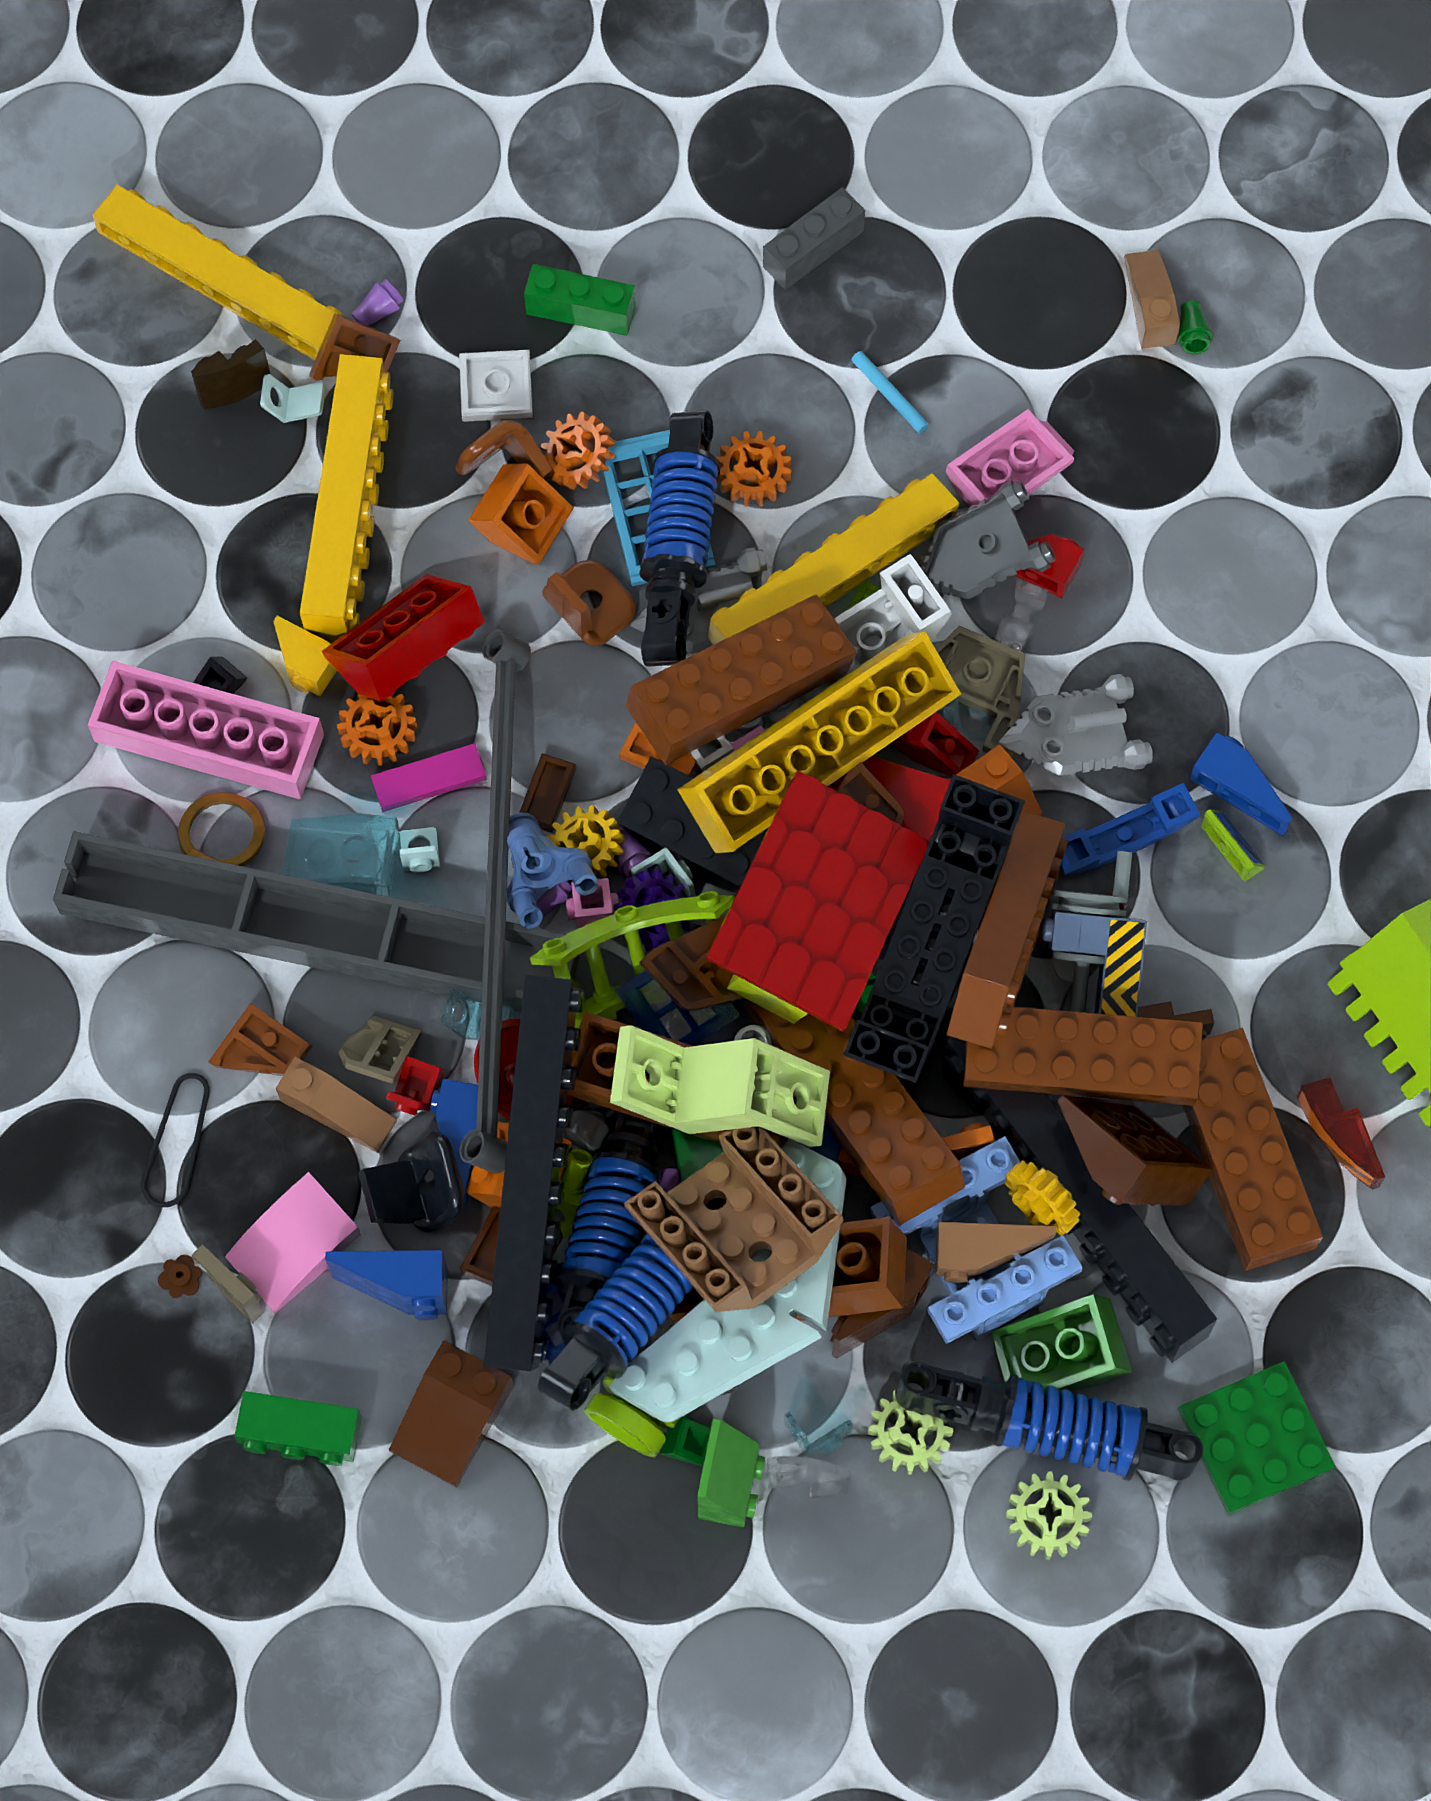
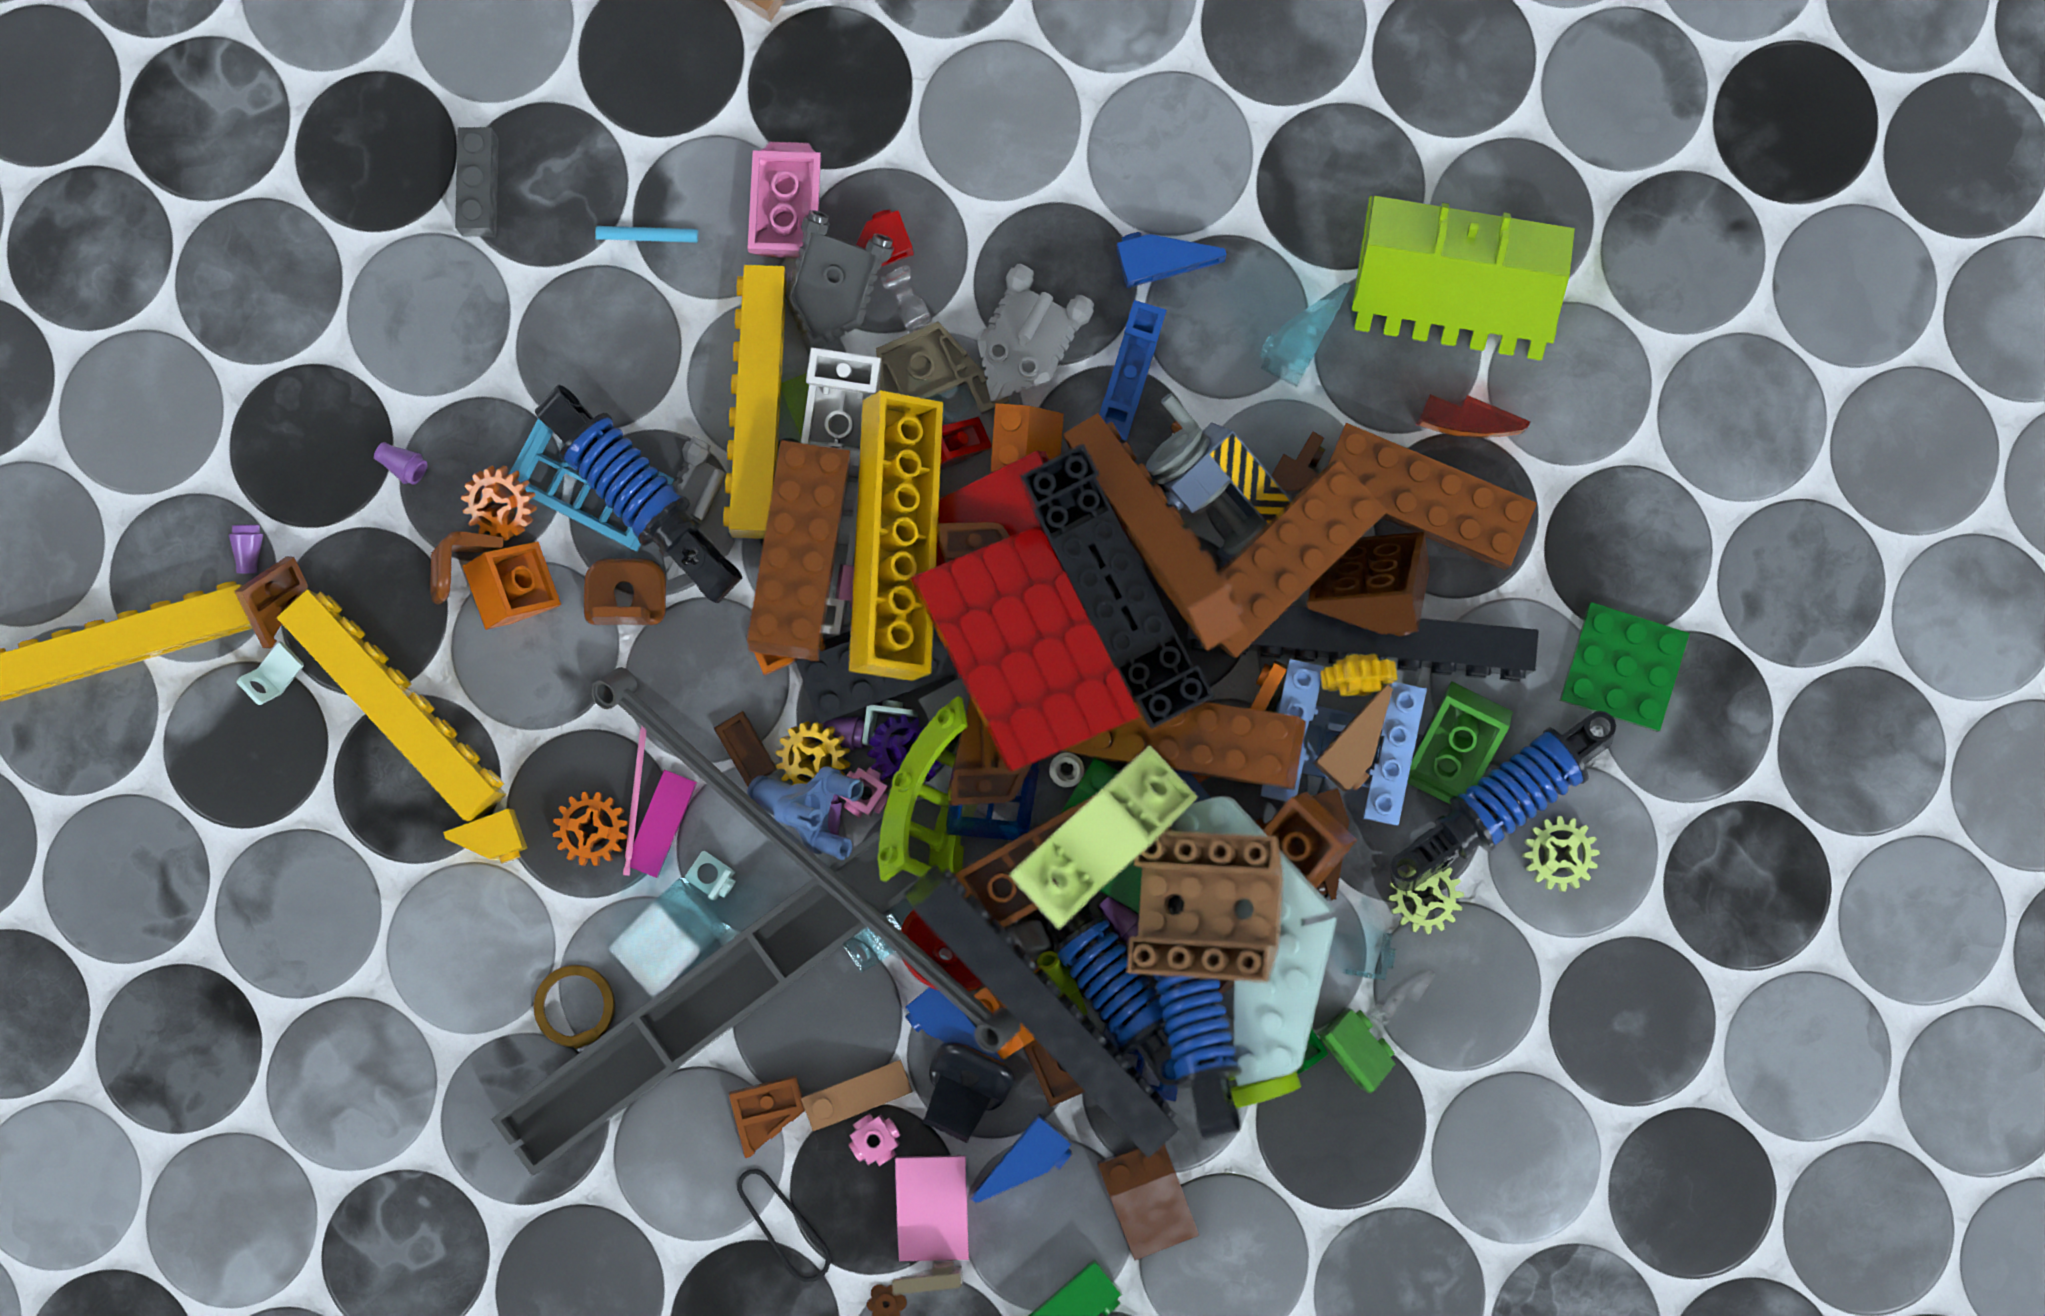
camera: 45 degrees left, 15 degrees up
(206, 729) = (488, 956): bright pink brick -> none
(220, 675) = (452, 911): black slope -> none
(230, 380) = (212, 719): dark brown slope -> none
(316, 1158) = (884, 1129): none -> bright pink brick
(379, 1049) = (840, 1031): dark tan slope -> none
(405, 636) = (540, 753): red slope -> none
(416, 1086) = (890, 1028): red bracket -> none
(427, 743) = (634, 803): none -> bright pink piece
(495, 385) = (388, 514): white tile -> none
(545, 362) = (402, 463): none -> medium lavender cone
(579, 299) = (375, 396): green brick -> none
(751, 482) = (624, 372): orange gear -> none
(1231, 844) = (1202, 303): lime slope -> none
(1282, 936) = (1297, 341): none -> clear light blue slope

